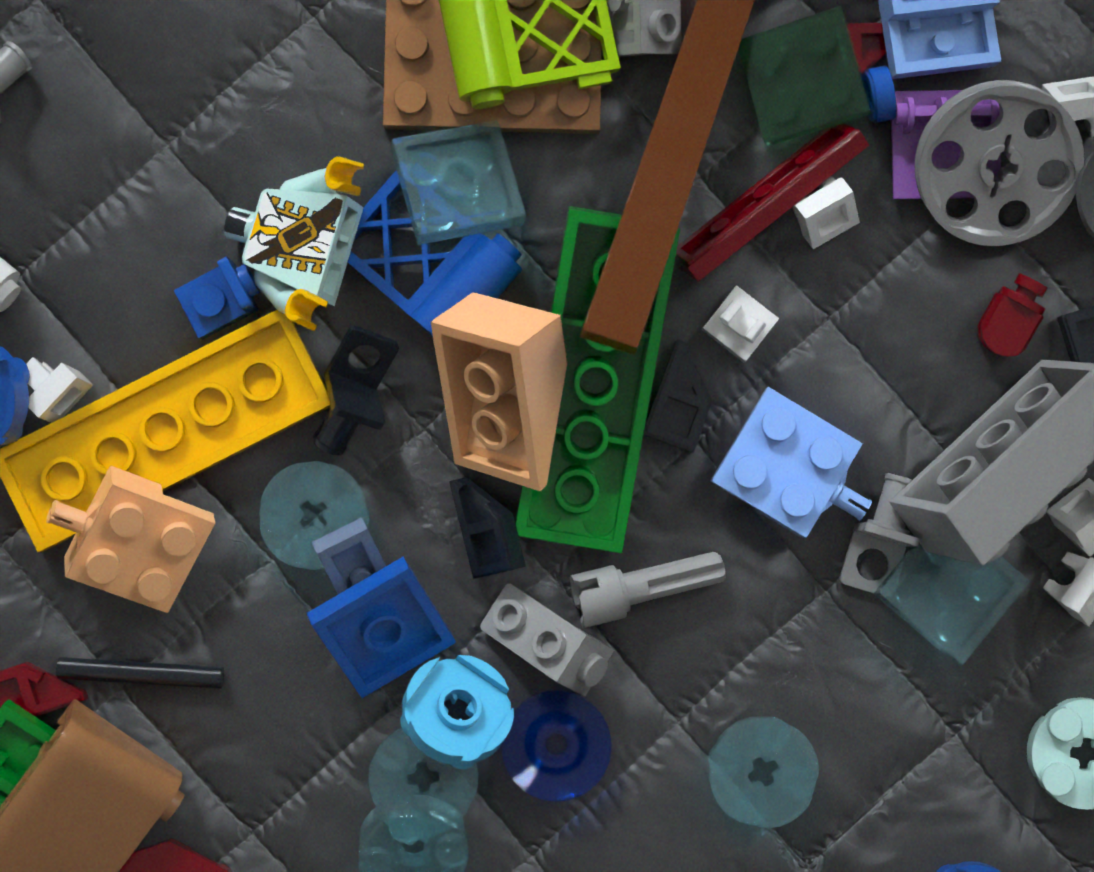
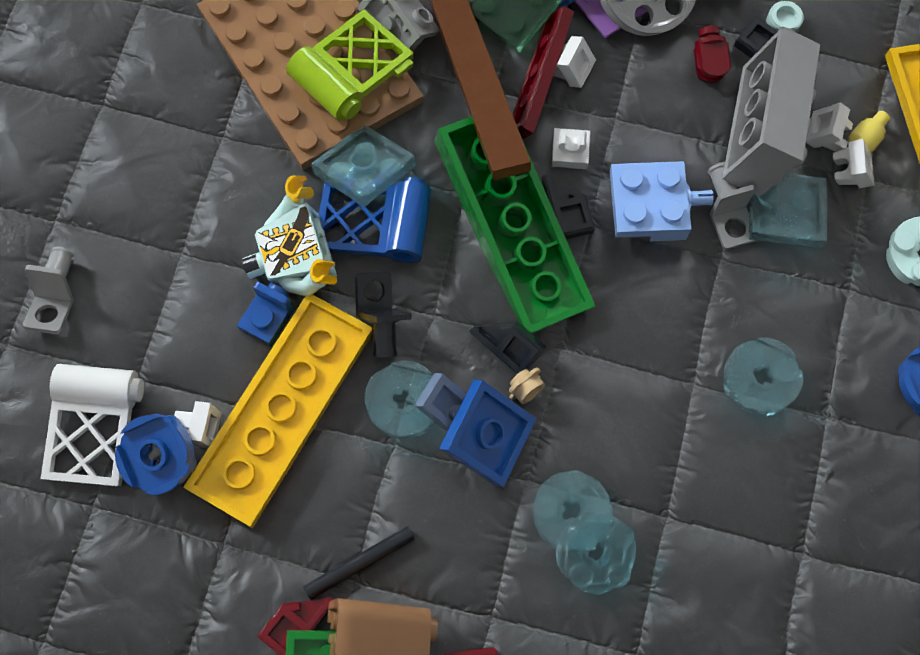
camera: 30 degrees left, 15 degrees down
(133, 539) = (305, 478): light nougat plate -> none
(449, 739) = (565, 470): medium azure plate -> none
(469, 596) = (526, 385): none -> tan plate
(501, 386) = (466, 251): light nougat slope -> none
(547, 640) = (588, 379): light grey bracket -> none
(562, 774) = (647, 422): clear blue dish -> none
(607, 593) = (605, 331): light grey piece -> none

